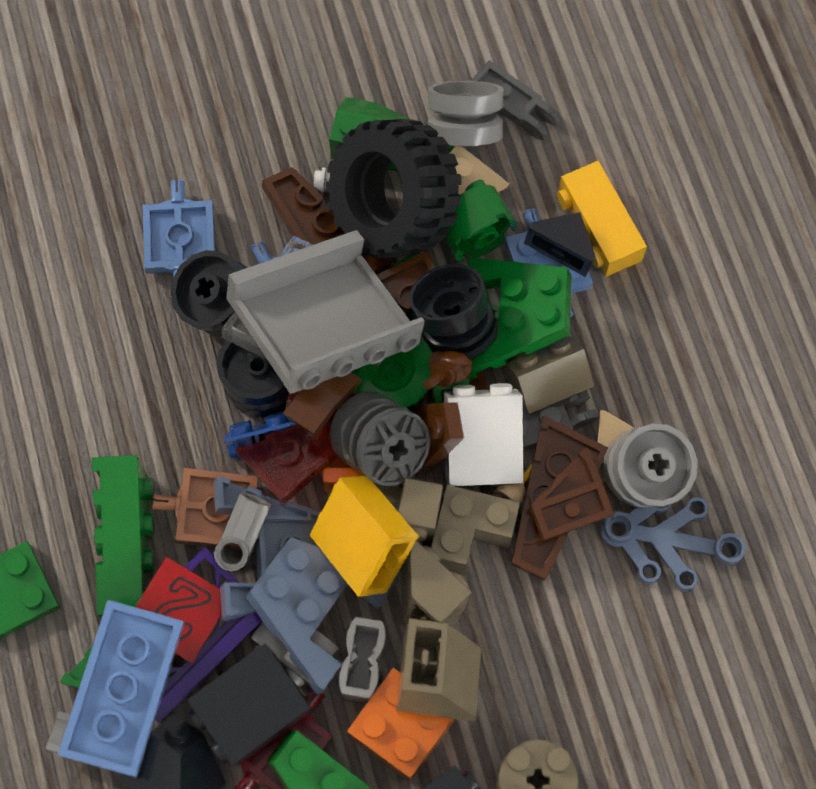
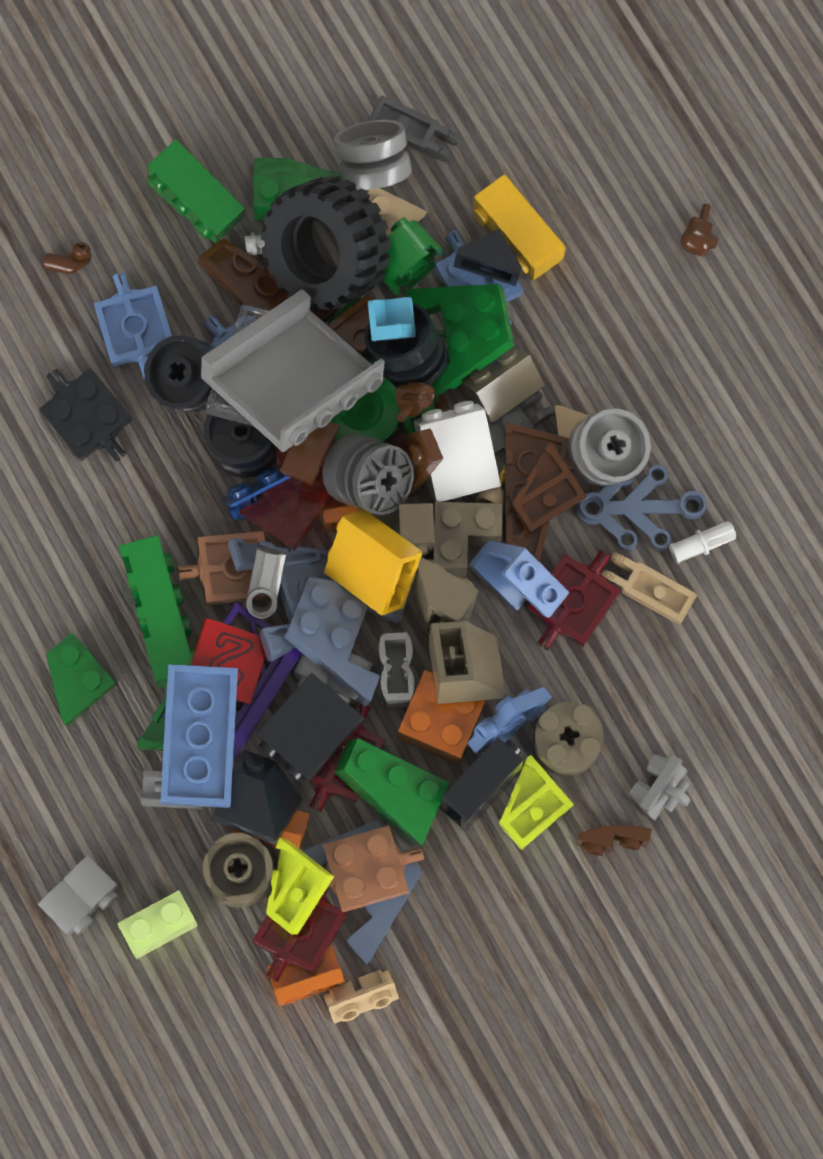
camera: 15 degrees left, 5 degrees up
(105, 316) = (86, 414): none -> black plate
(132, 162) = (72, 262): none -> reddish brown arm
(272, 113) = (194, 192): none -> green wedge
(442, 278) = (391, 319): none -> medium azure panel
(474, 745) = (510, 718): none -> medium blue plate
(519, 588) = (518, 576): none -> medium blue panel
(576, 626) = (584, 606): none -> dark red plate
(665, 632) = (651, 589): none -> tan hinge
(732, 592) = (702, 542): none -> white axle
(790, 263) = (697, 235): none -> reddish brown piece

